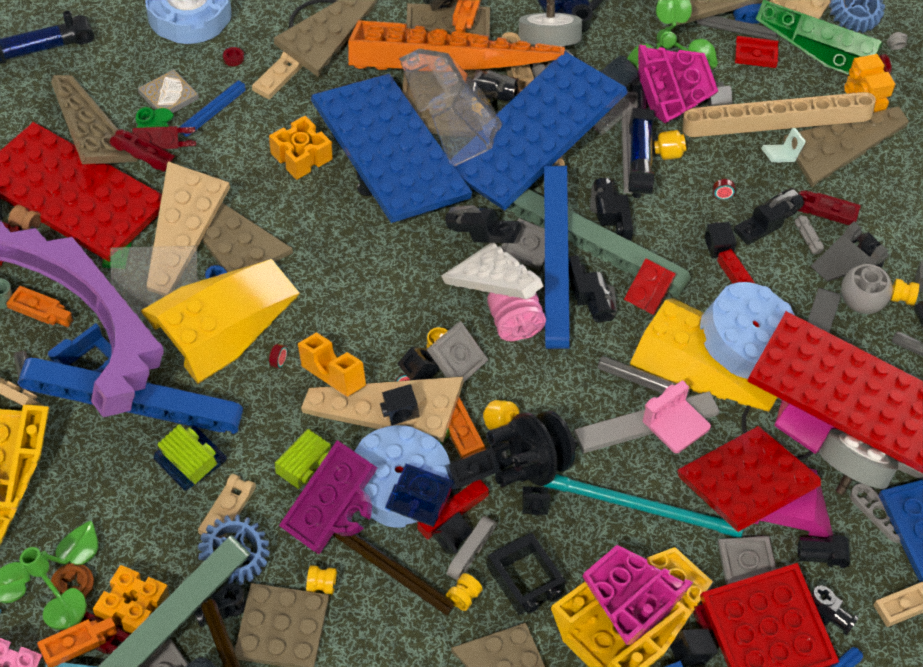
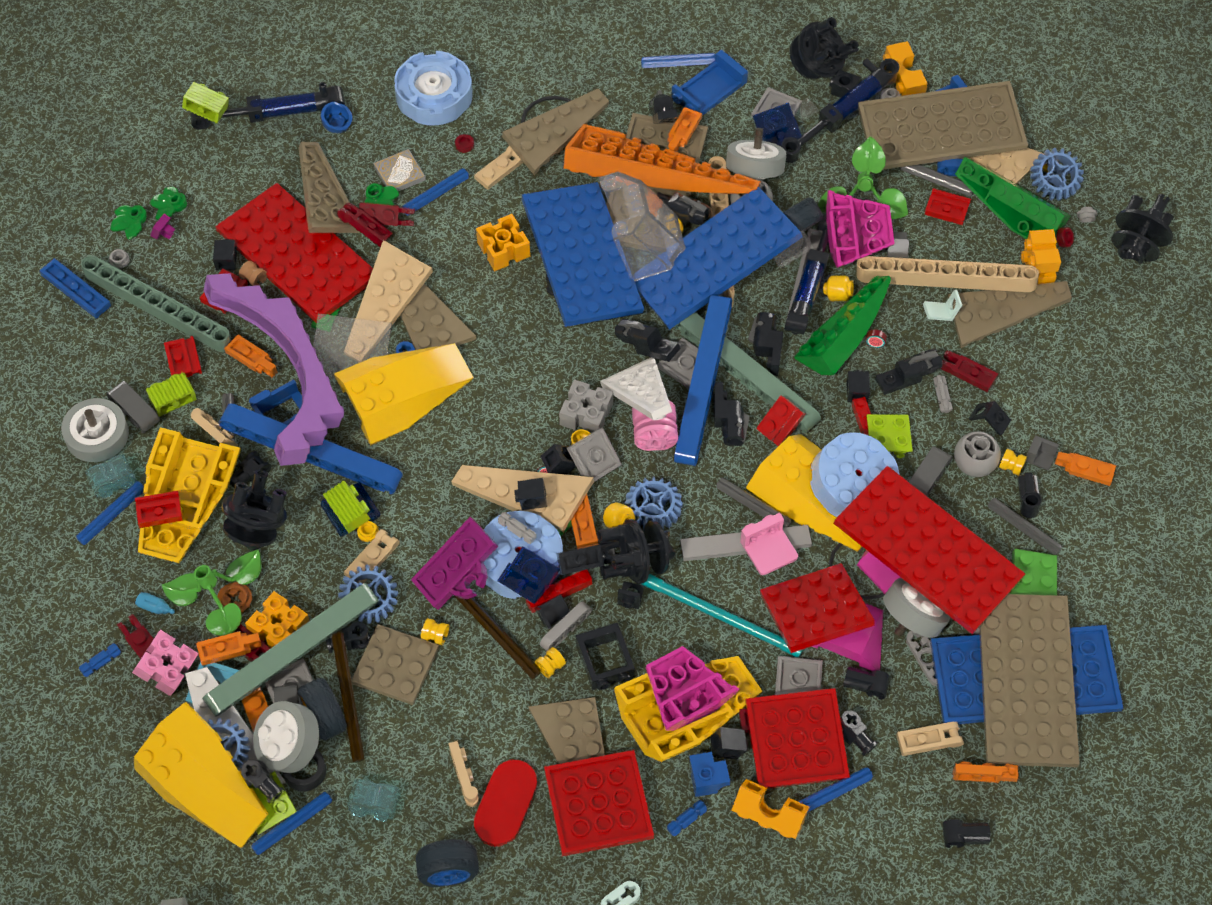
camera: 15 degrees right, 5 degrees up
(62, 432) = (247, 468): none -> black connector
(79, 480) = (252, 514): none -> black piece
(87, 54) = (336, 123): none -> blue helmet
(216, 479) = (367, 531): none -> yellow plate
(278, 355) = (442, 432): dark red tile -> none
(302, 459) = (441, 525): lime brick -> none
(341, 373) = (489, 456): light orange arch -> none
(393, 444) = (517, 528): none -> light grey axle
(434, 304) = (586, 407): none -> light grey brick
(534, 389) = (655, 496): none -> medium blue gear
(688, 187) = (844, 330): none -> green wedge
(772, 275) = (892, 432): none -> lime hinge
(846, 255) = (968, 419): dark grey flag -> none

